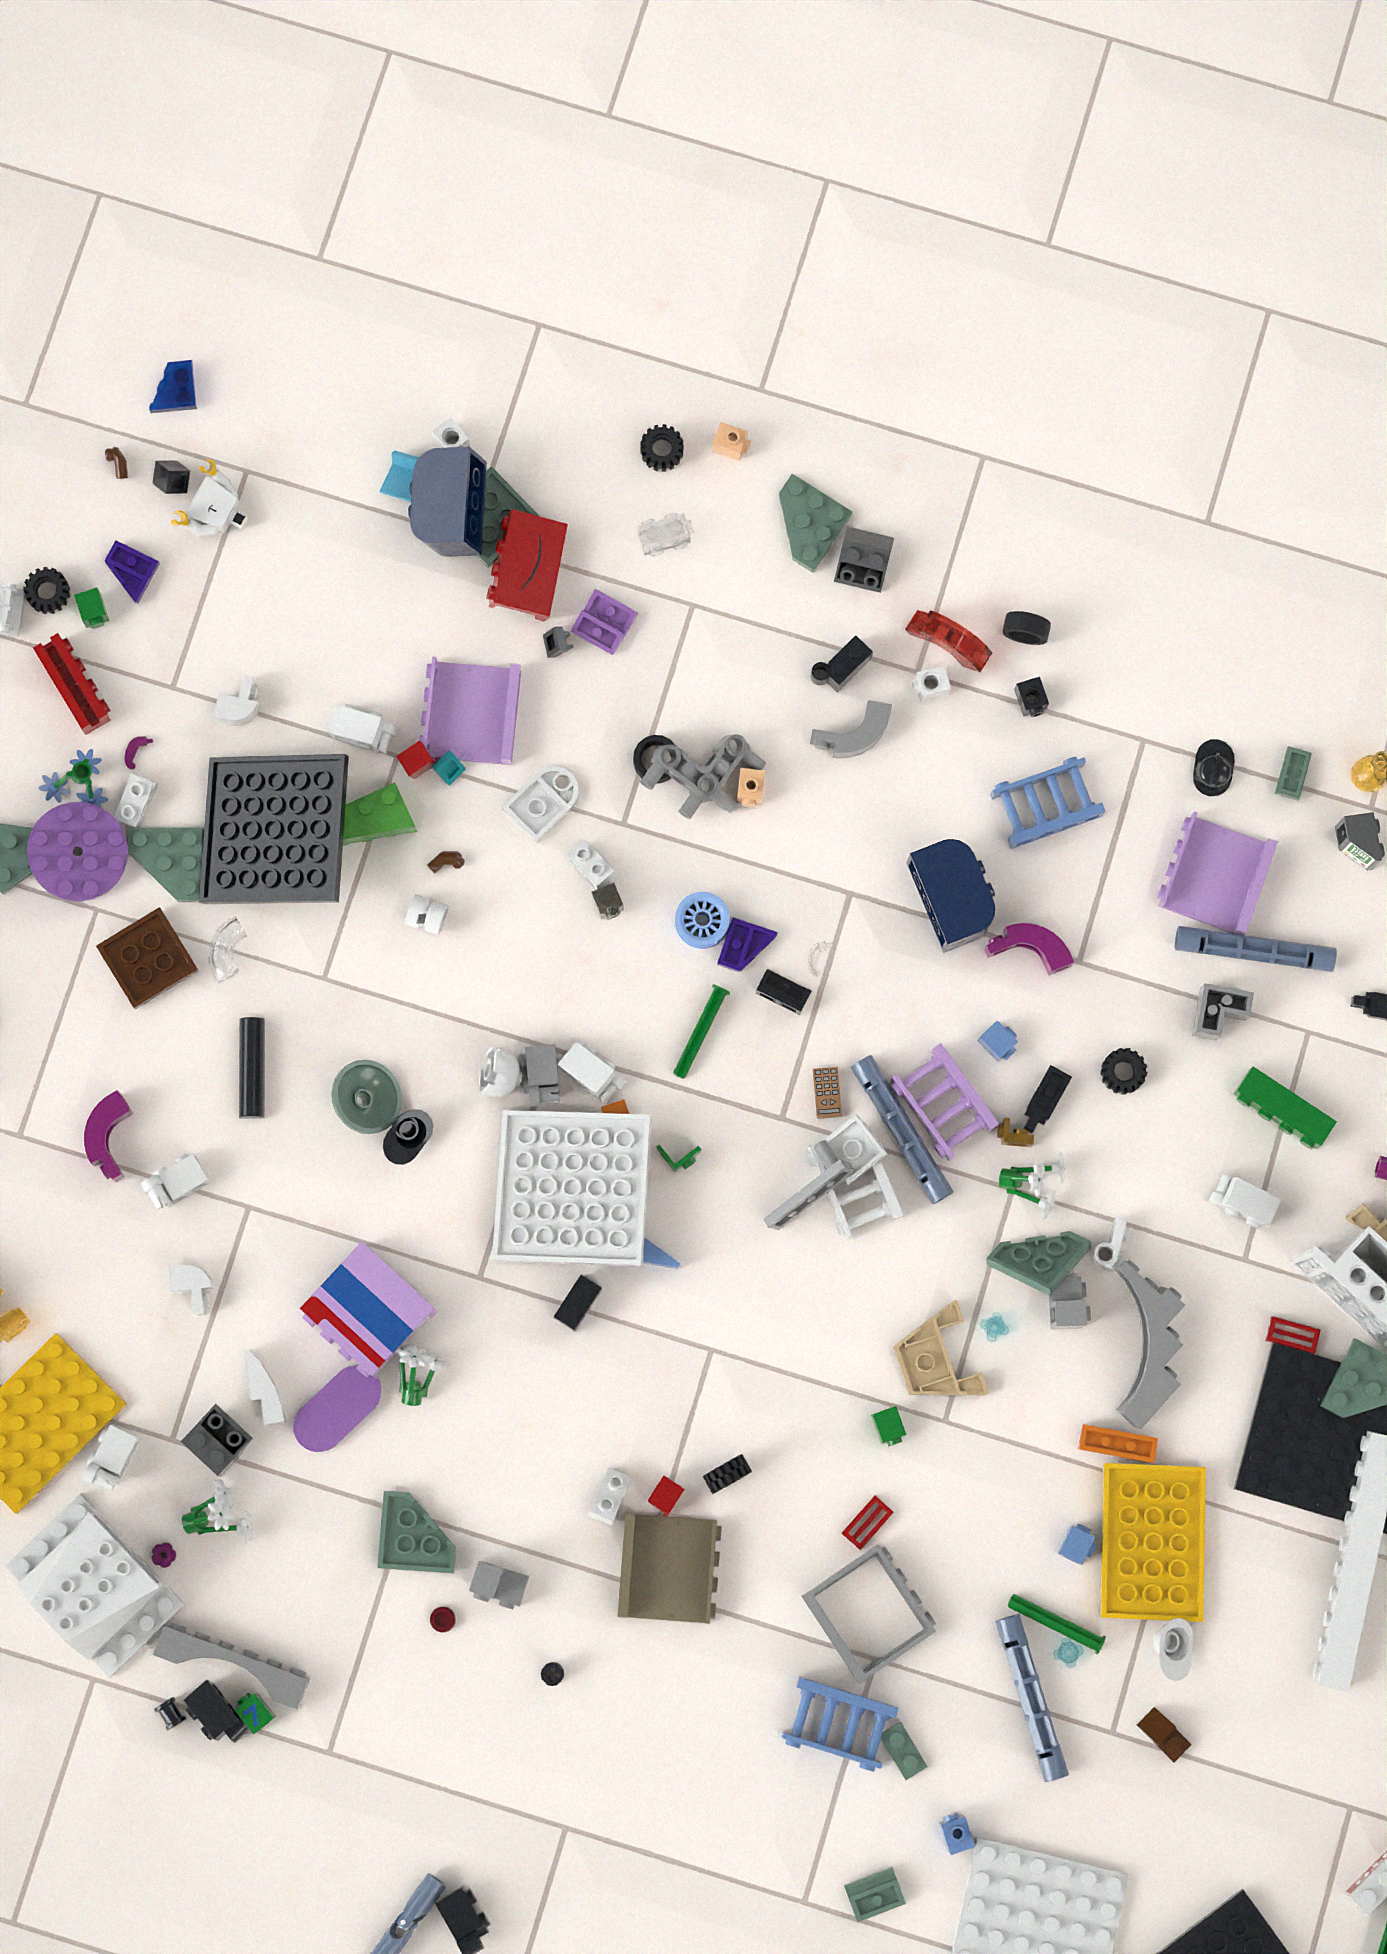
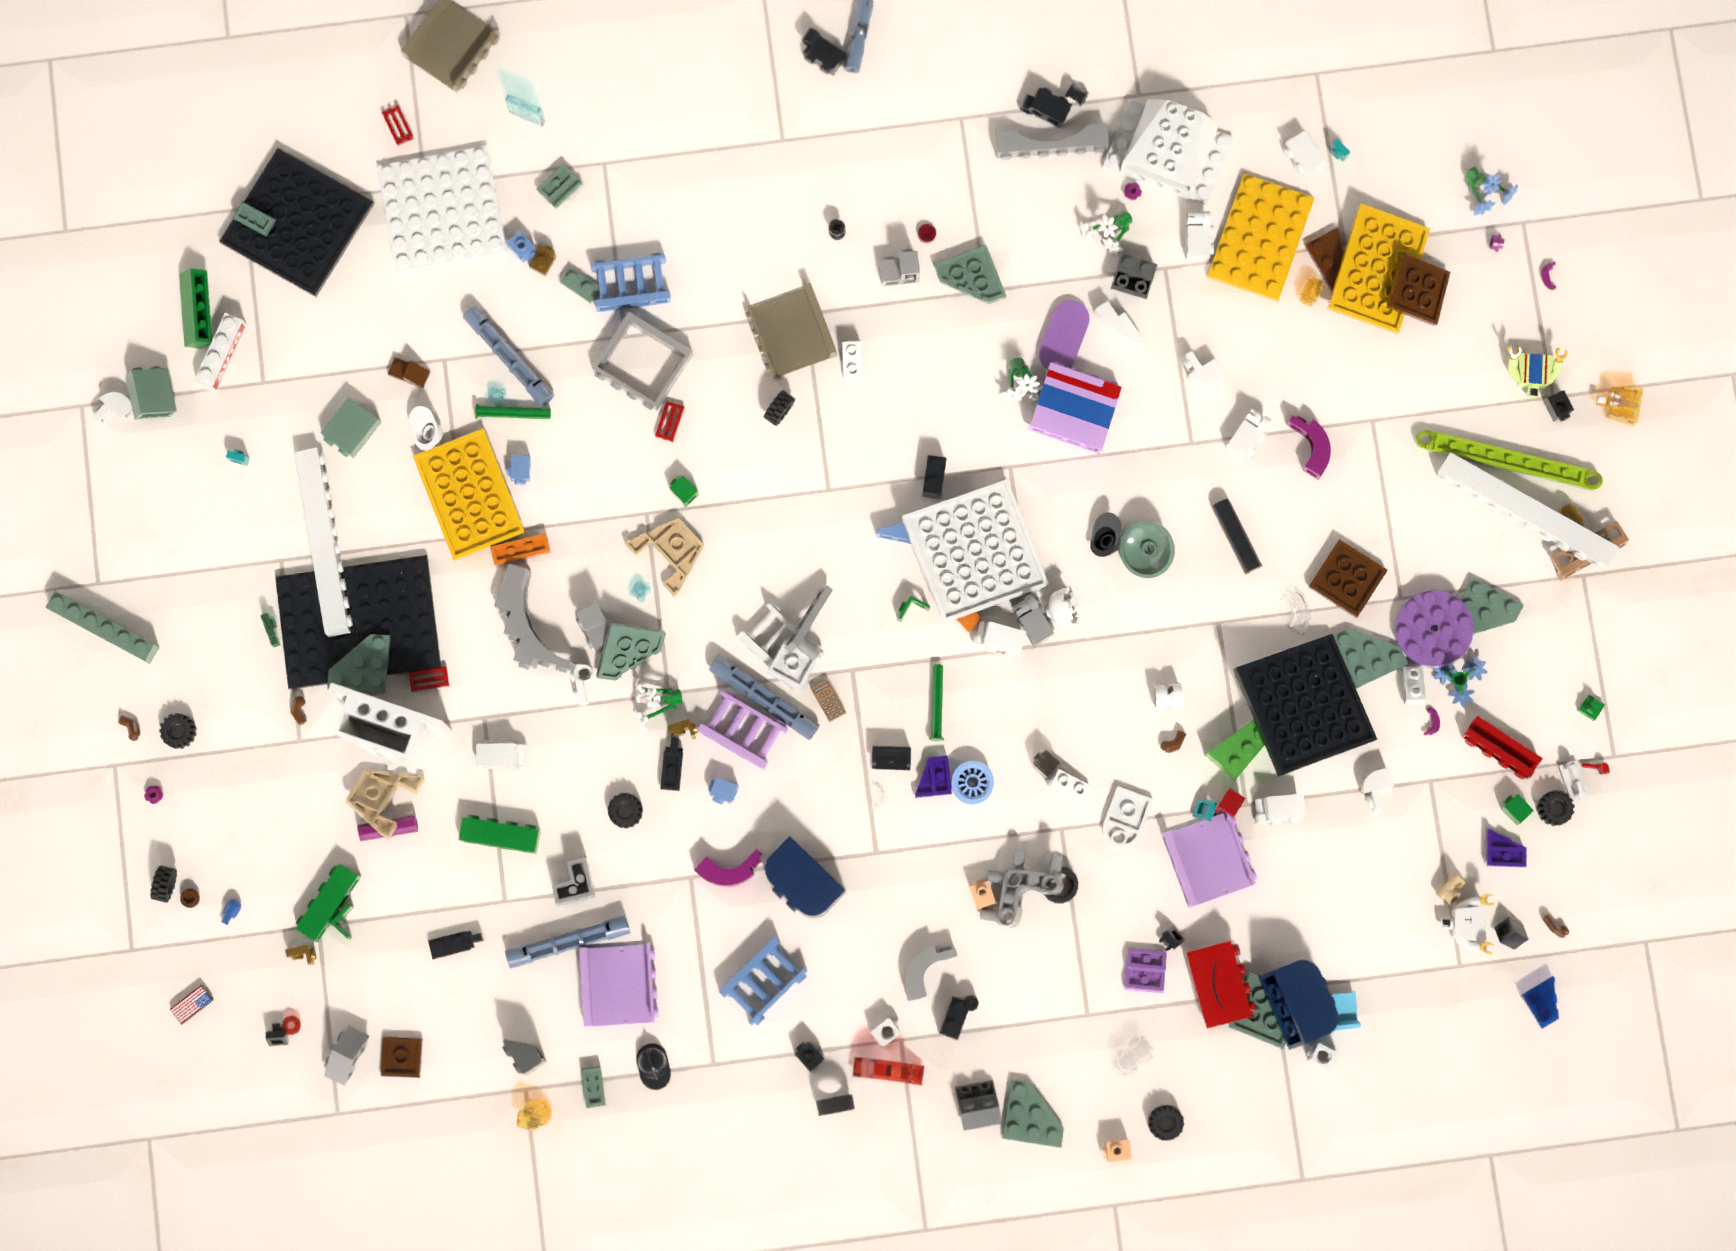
camera: 160 degrees right, 0 degrees up
(217, 553) = (1448, 890): none -> tan plate
(254, 1712) = (1022, 119): green brick -> none
(665, 1495) = (814, 375): red panel -> none
(936, 1805) = (543, 260): none -> pearl gold bracket
(1266, 1693) = (350, 428): none -> sand green brick

